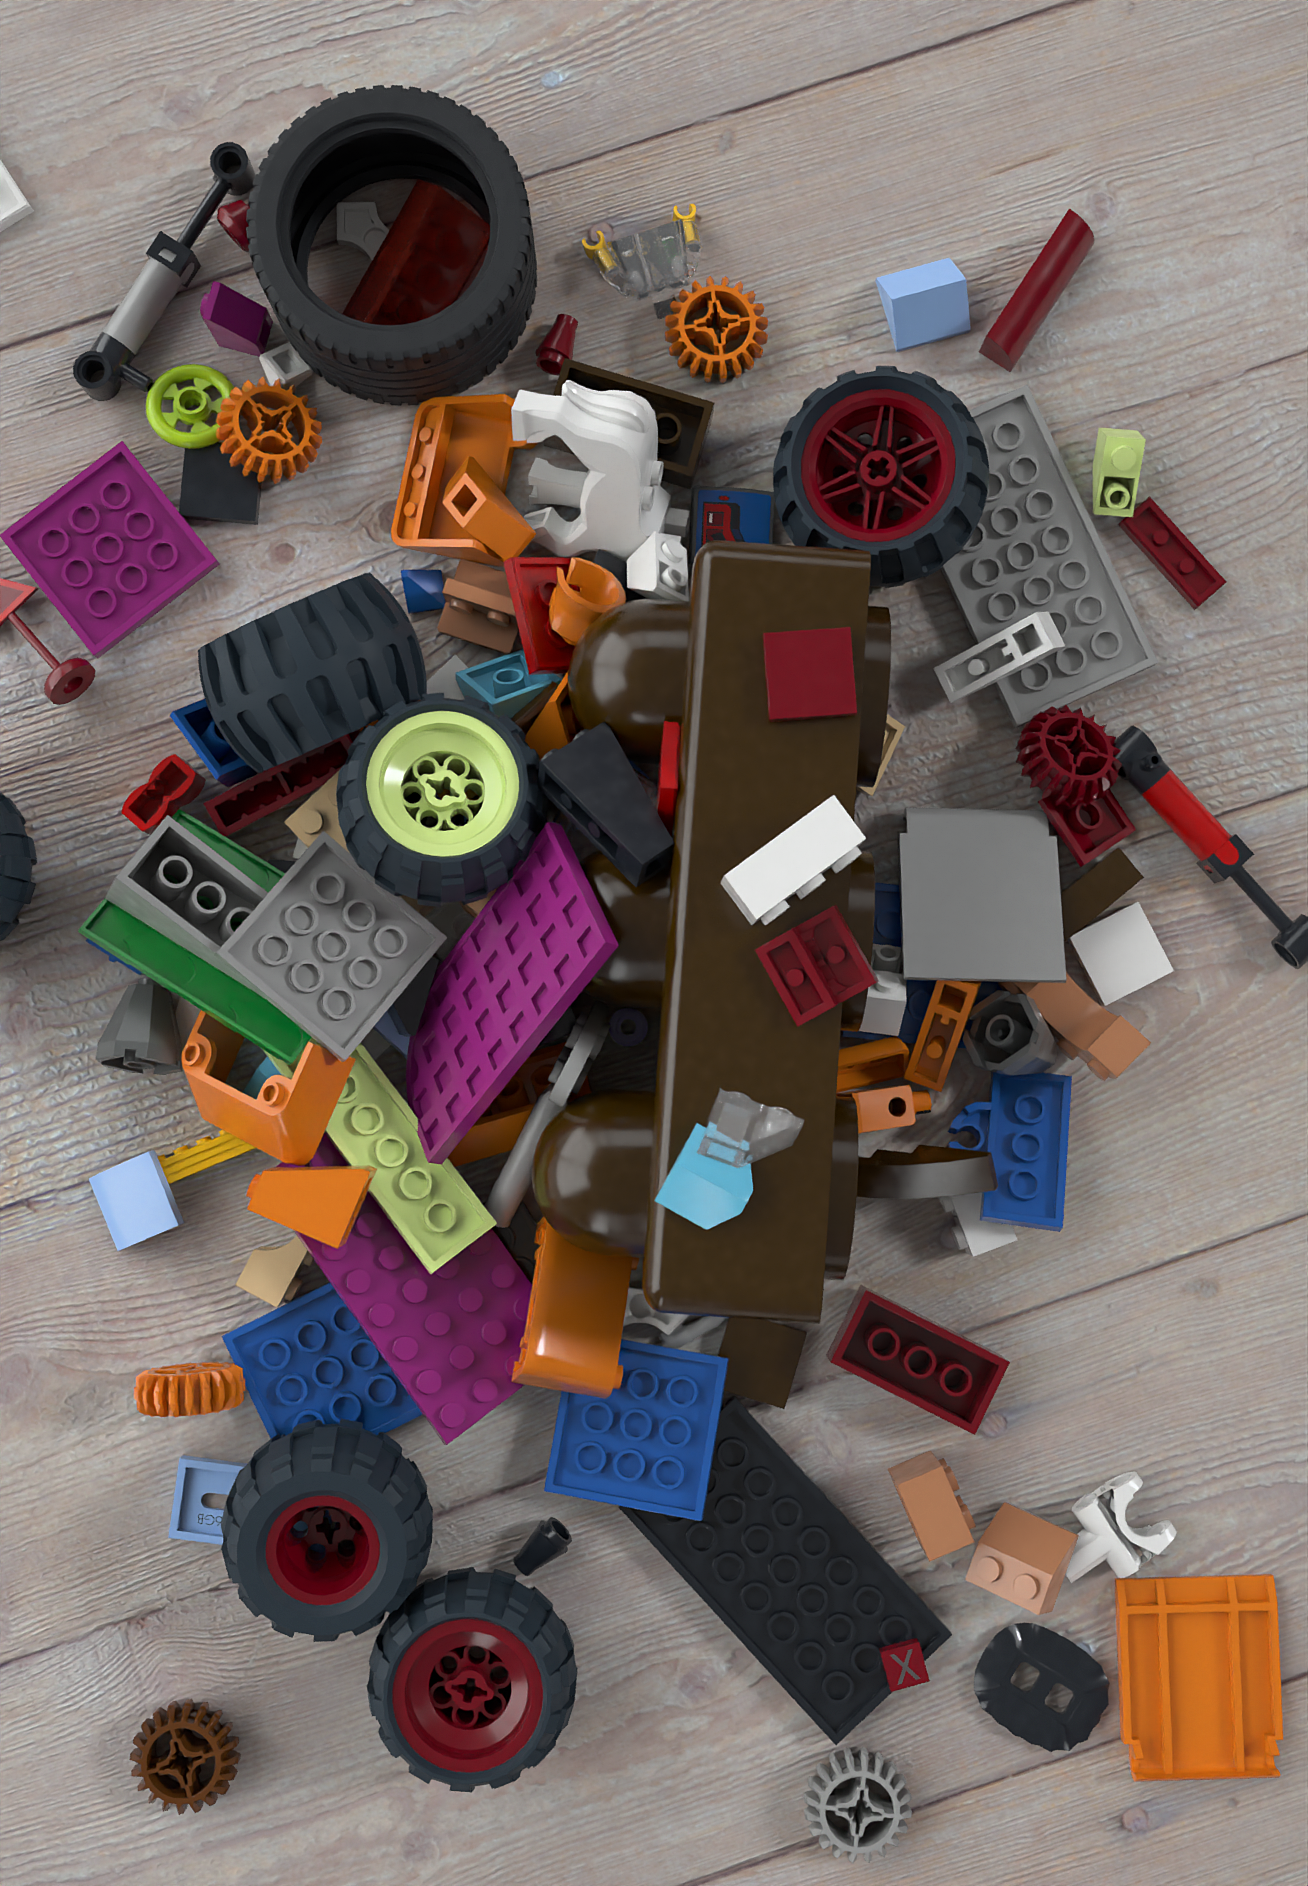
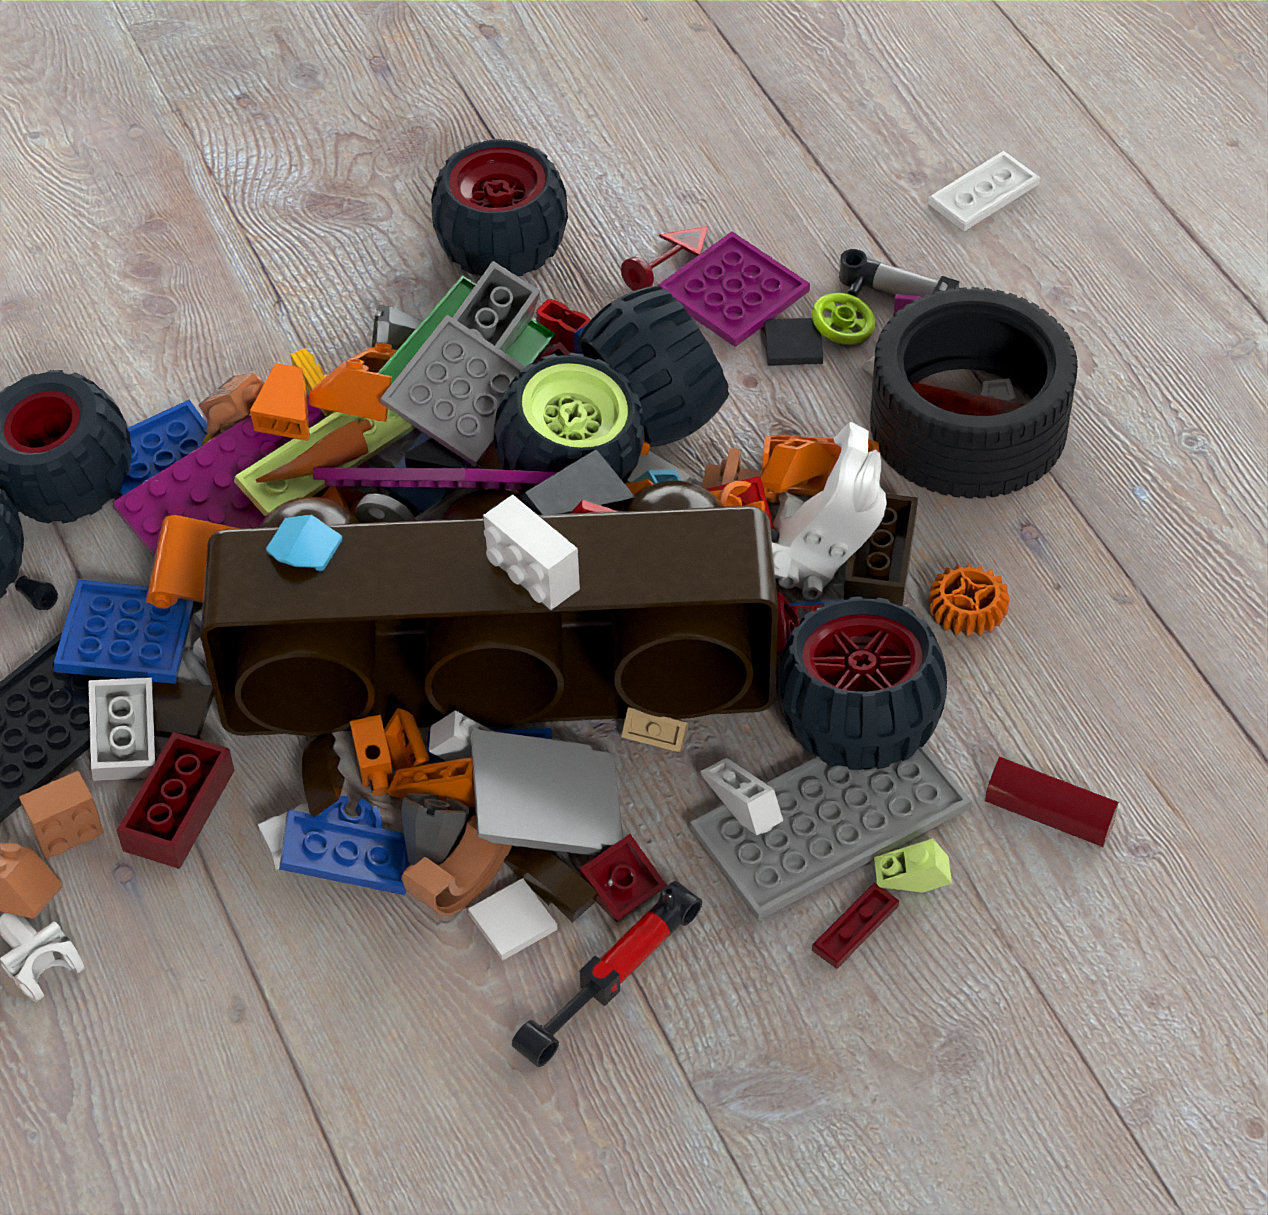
camera: 90 degrees right, 35 degrees down
(136, 1200) = (283, 347): light blue slope -> none
(189, 1389) = (152, 378): orange gear -> none
(252, 405) = (826, 338): orange gear -> none
(275, 1271) = (230, 402): none -> nougat torso
(396, 1139) = (331, 451): none -> dark orange piece
(423, 590) = (739, 443): blue slope -> none
(557, 344) = (934, 509): dark red cone -> none
(651, 260) = (1013, 554): clear torso -> none
(746, 1130) = (335, 551): clear slope -> none
(809, 674) = (674, 566): dark red tile -> none
(811, 1429) = (121, 728): none -> white brick
(816, 965) = (460, 590): dark red slope -> none
(925, 304) = (1023, 731): light blue slope -> none
(1068, 756) = (658, 855): dark red gear -> none

